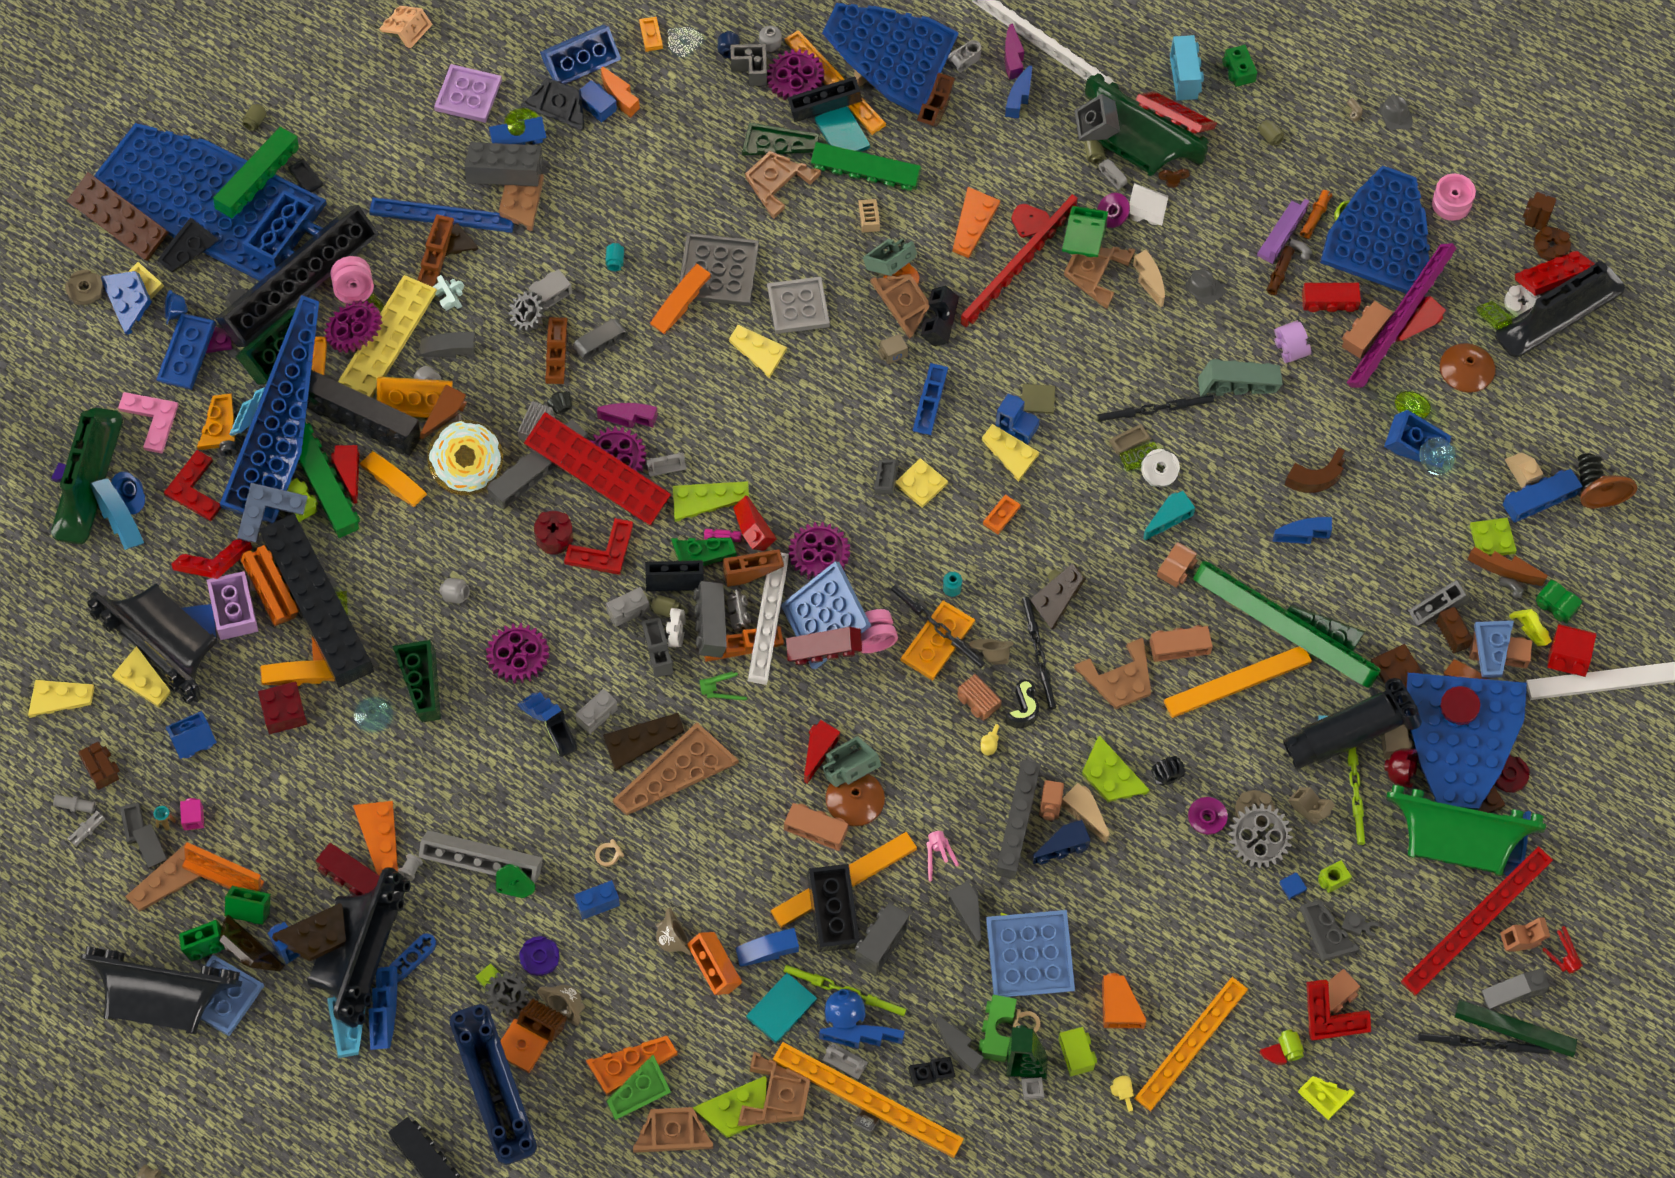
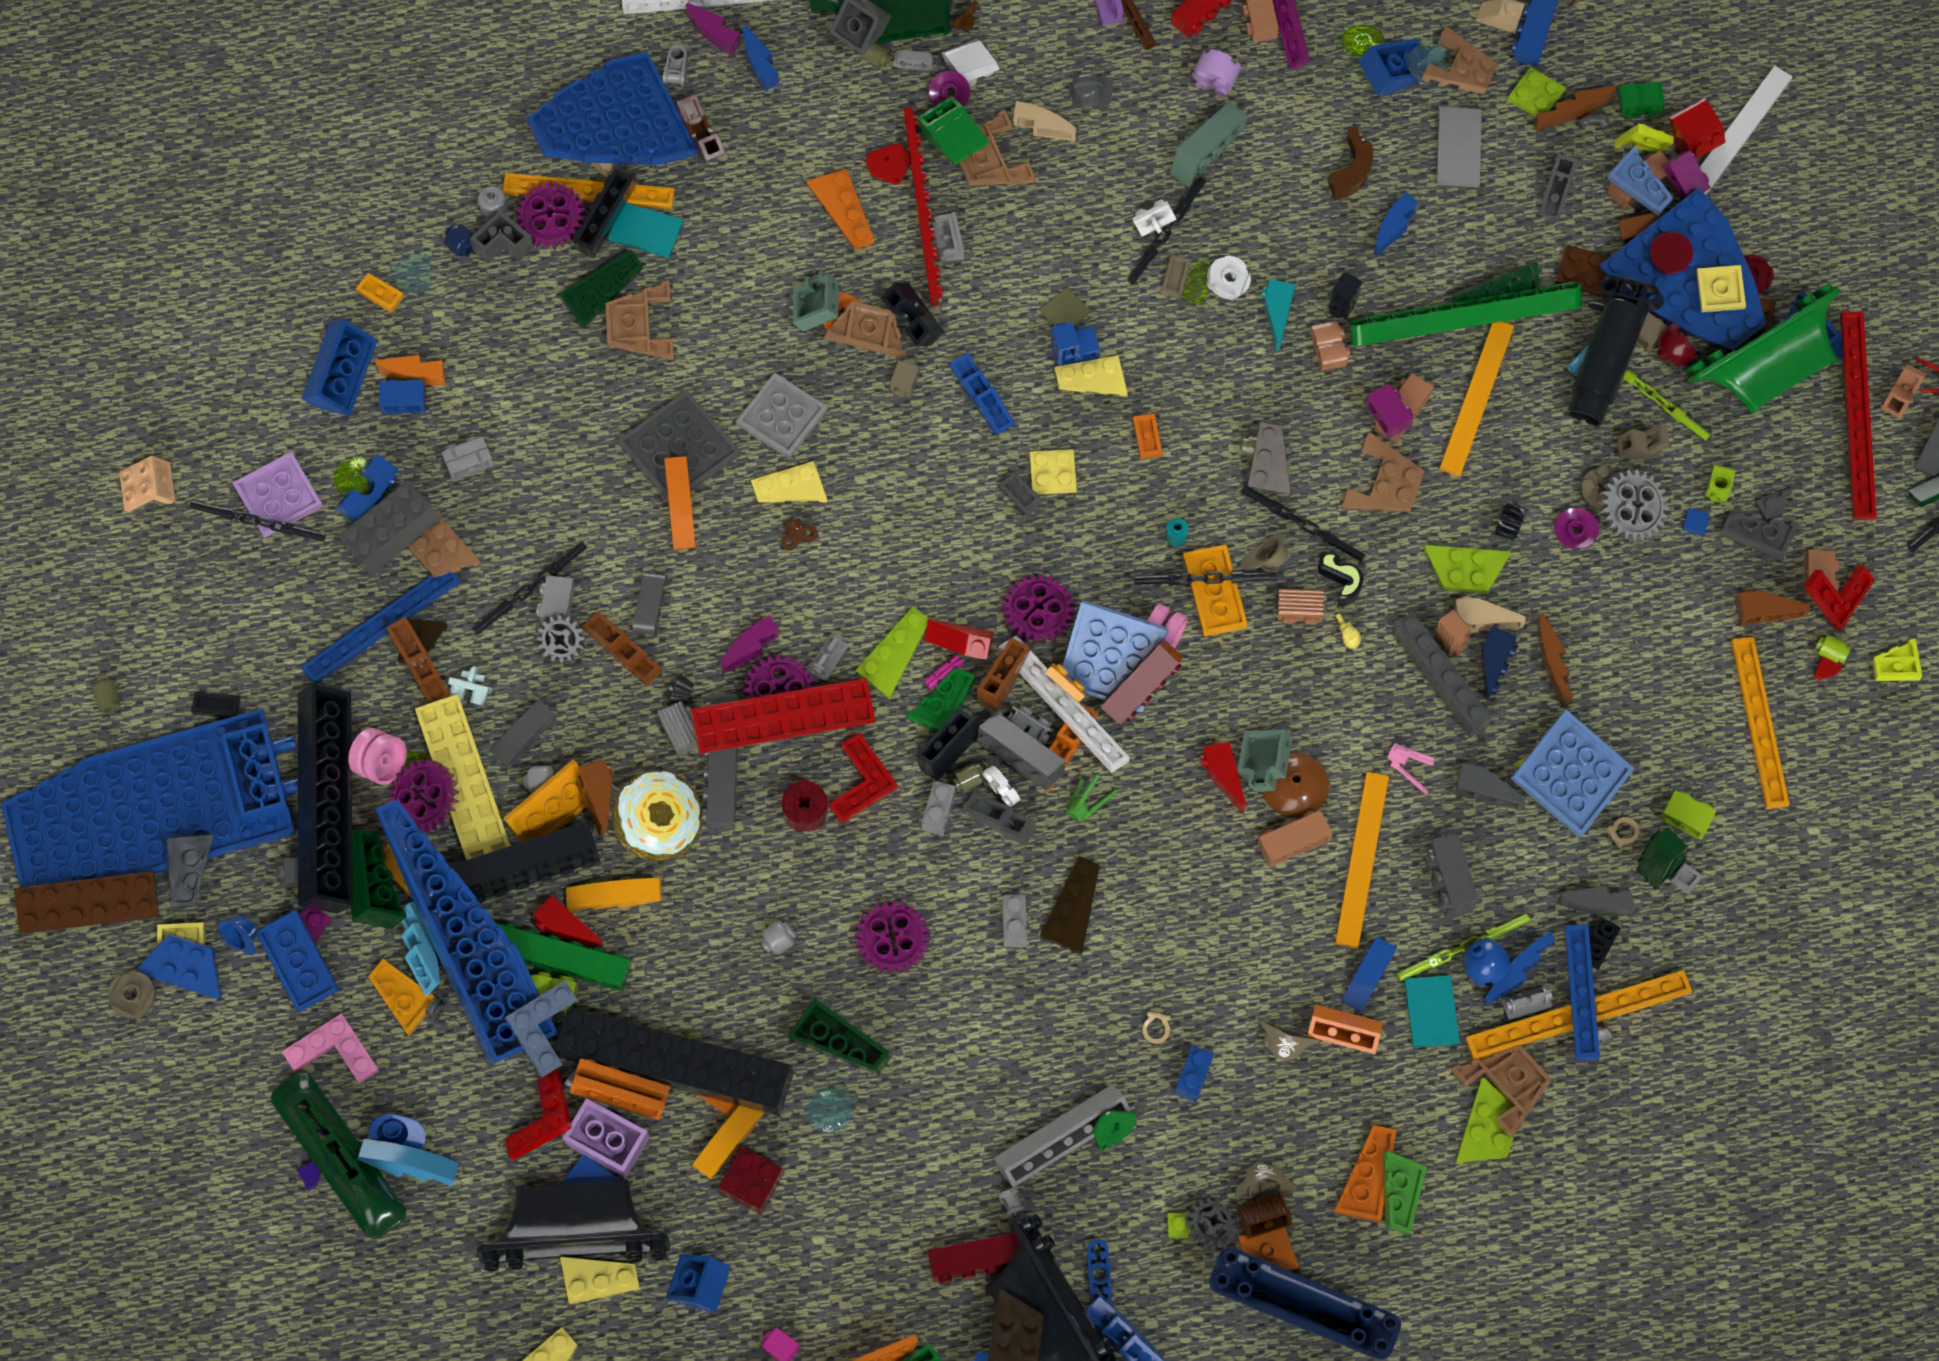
camera: 45 degrees left, 5 degrees up
(182, 486) = (440, 1087): red plate -> none
(256, 172) = (174, 742): green brick -> none
(379, 833) = (948, 1199): orange wing -> none
(449, 113) = (229, 514): none -> black piece
(520, 268) = (553, 569): none -> black piece
(539, 707) = (972, 963): blue slope -> none
(545, 956) = (1194, 1173): dark purple tile -> none
(557, 102) = (370, 429): black wing -> none
(561, 734) = (1005, 968): black animal -> none
(592, 166) = (467, 458): none -> light grey brick
(614, 257) = (578, 519): teal brick -> none
(672, 1131) = (1462, 1196): medium nougat wing -> none
(683, 764) = (1133, 891): medium nougat wing -> none
(729, 378) = (797, 533): none -> reddish brown piece
(783, 605) = (1072, 687): none -> light orange plate
(833, 907) = (1387, 889): black brick -> none
(865, 165) = (704, 240): green brick -> none
(873, 226) = (759, 295): tan slope -> none
(881, 1085) = (1582, 992): none -> blue plate
(1000, 1011) = (1621, 873): bright green arch -> none
(1015, 293) = (948, 237): none -> light grey hinge
(1103, 874) = (1552, 654): none -> dark orange slope
(1120, 1004) = (1677, 744): orange slope -> none
(1123, 1089) = (1753, 809): light yellow piece -> none
(1153, 392) = (1154, 218): none -> white hips
(1163, 632) = (1389, 410): none -> magenta brick
(1218, 542) = (1344, 295): none -> black brick
(1273, 975) = (1763, 607): none -> dark orange slope
(1403, 524) = (1459, 147): none -> light grey tile
(1454, 630) = (1592, 197): reddish brown brick -> none
(1463, 483) = (1470, 68): none -> medium nougat wing
(1468, 756) = (1720, 288): none -> light yellow plate
(1530, 668) = (1686, 174): none -> magenta brick

